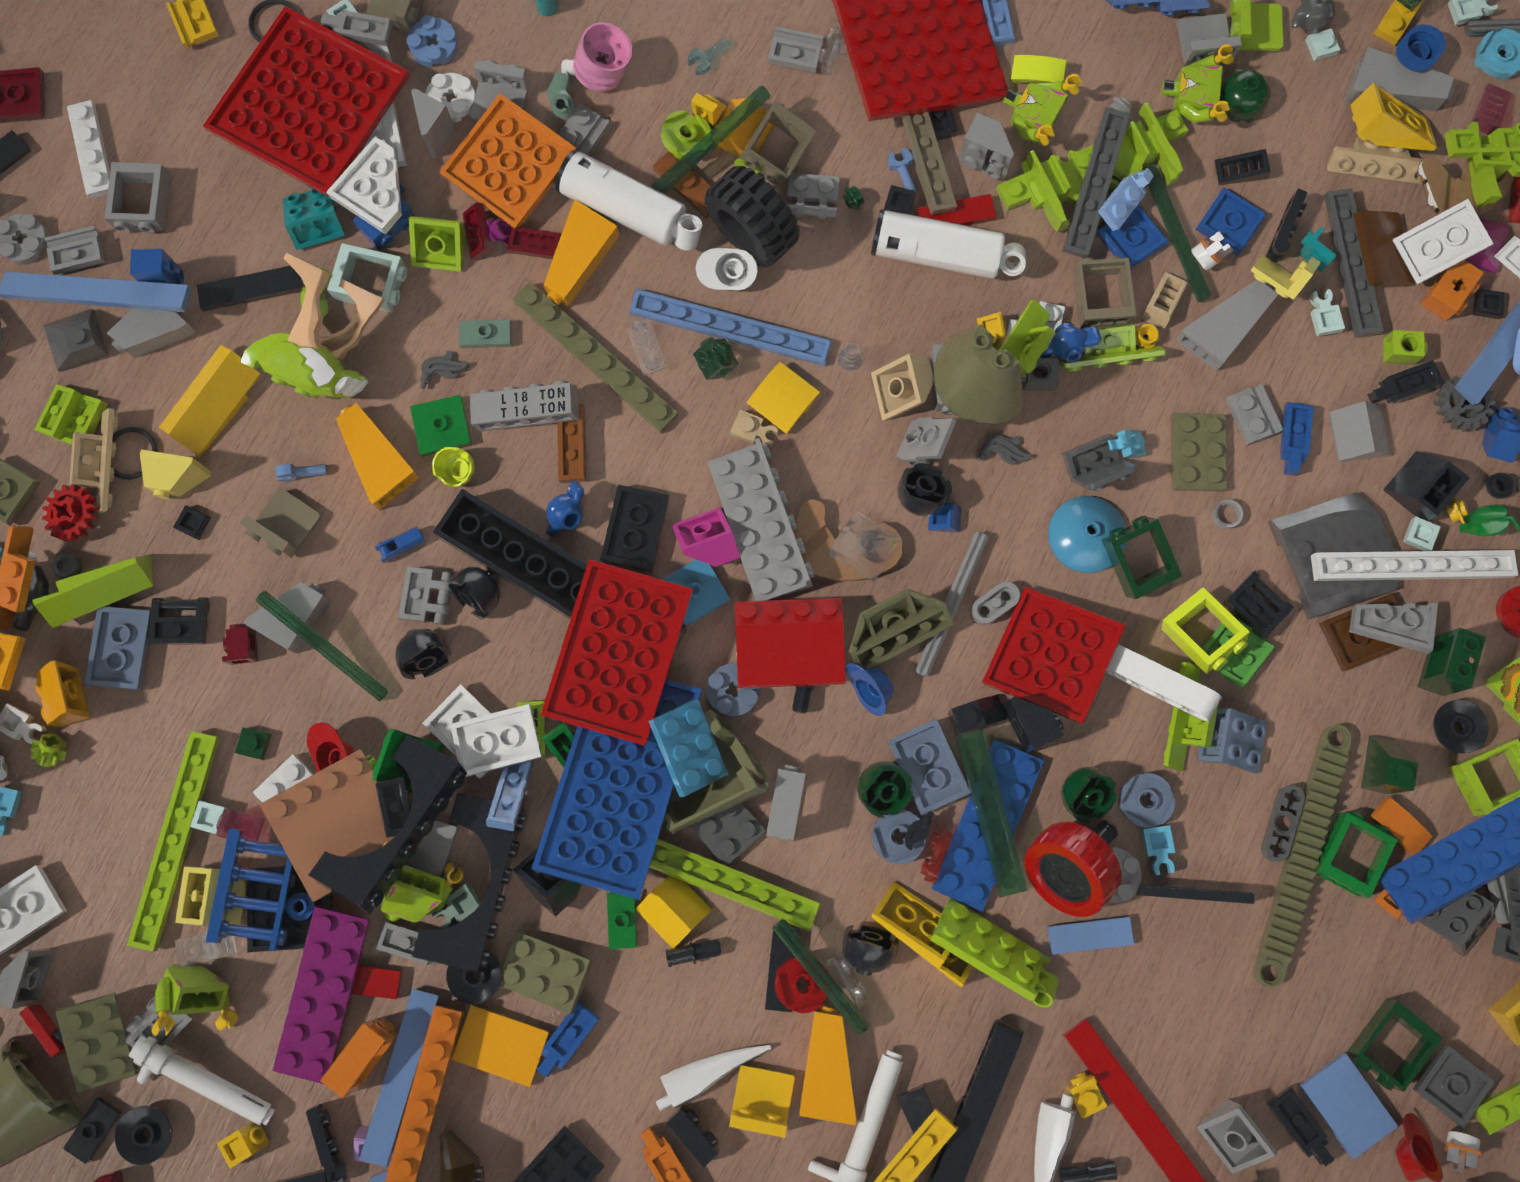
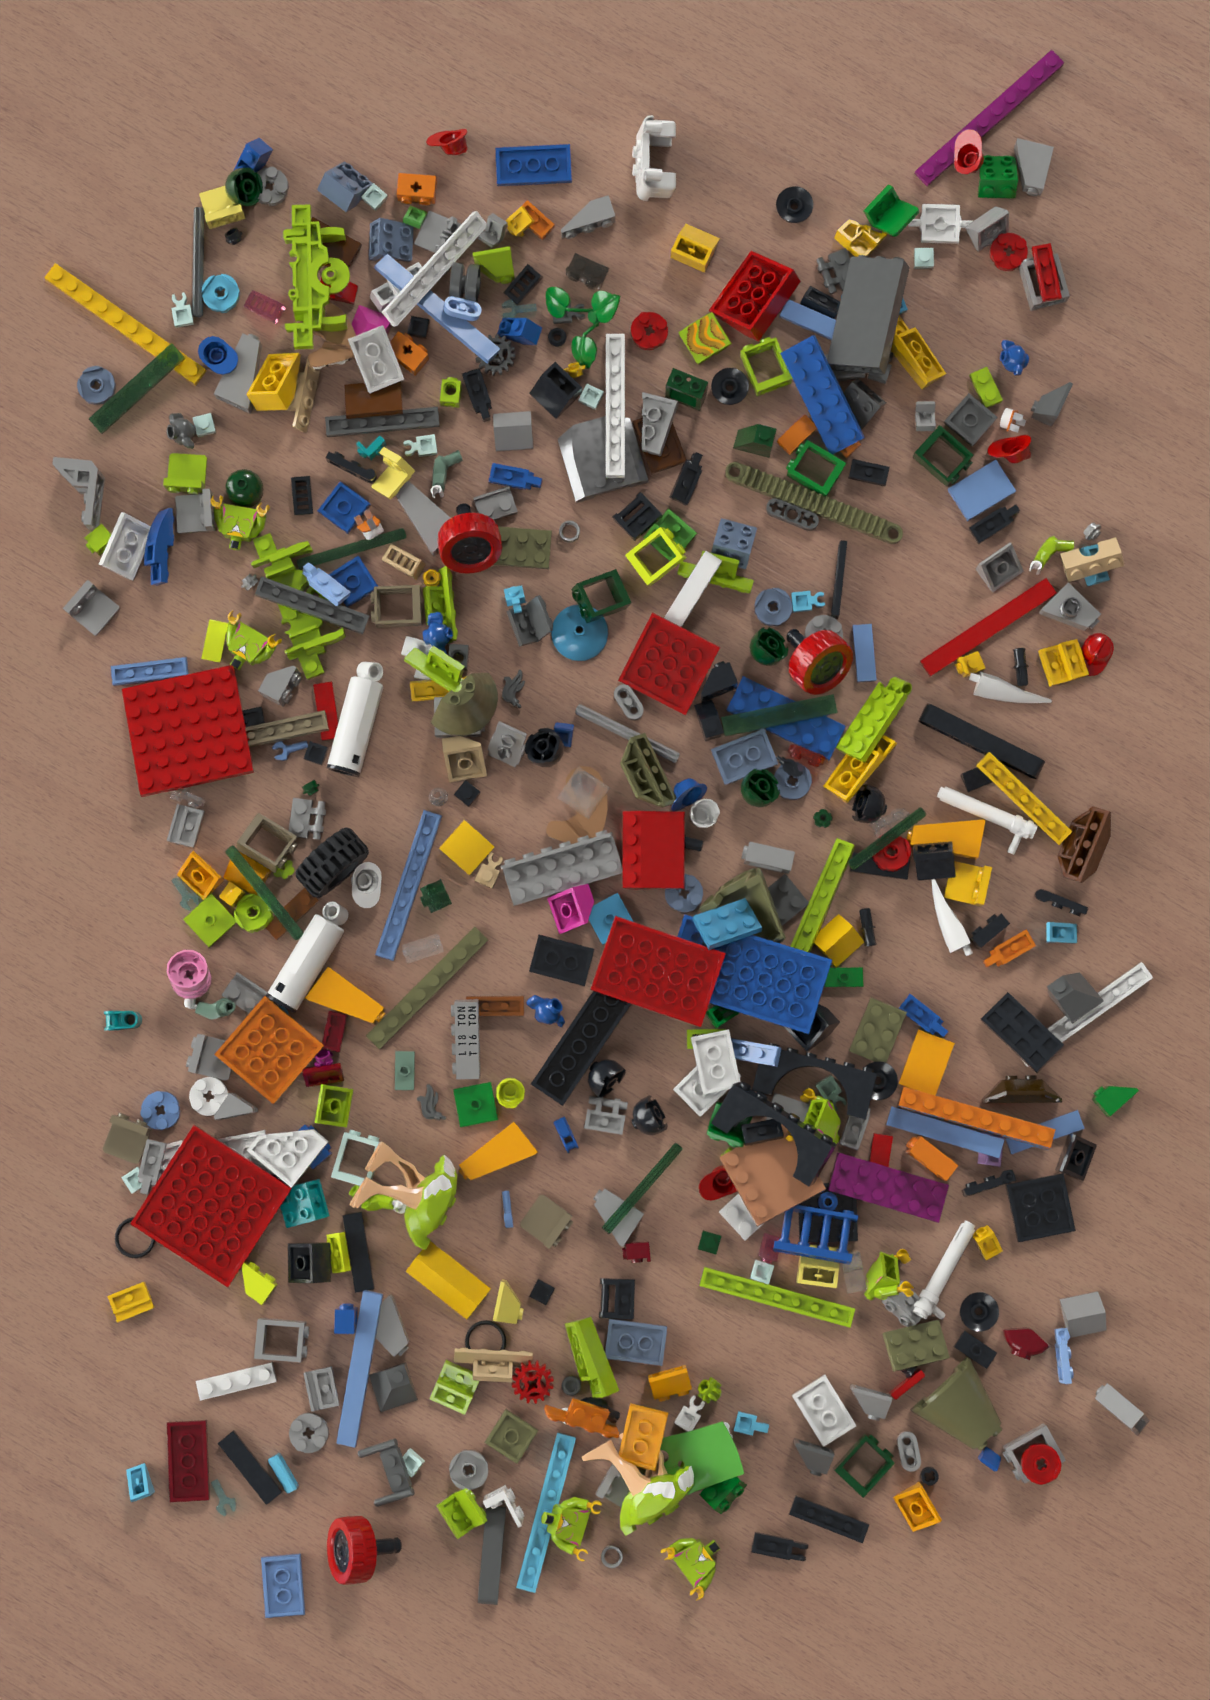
camera: 85 degrees left, 5 degrees up
(211, 164) = (256, 1283): none -> neon yellow slope
(234, 227) = (309, 1262): none -> black slope
(240, 263) = (339, 1253): none -> neon yellow plate
(674, 85) = (210, 920): none -> lime plate
(734, 71) = (200, 875): none -> light orange slope
(792, 1049) = (934, 860): none -> black bracket
(845, 712) = (704, 813): none -> white hair
(847, 890) = (822, 823): none -> dark green plate
(856, 395) = (467, 793): none -> black plate
(1202, 373) = (469, 541): none -> red wheel
(1293, 339) = (440, 471): none -> sand green arm
(1317, 671) = (687, 479): none -> black hinge
(1356, 933) = (868, 472): none -> black plate
(1452, 1015) = (925, 416): none -> light grey bracket

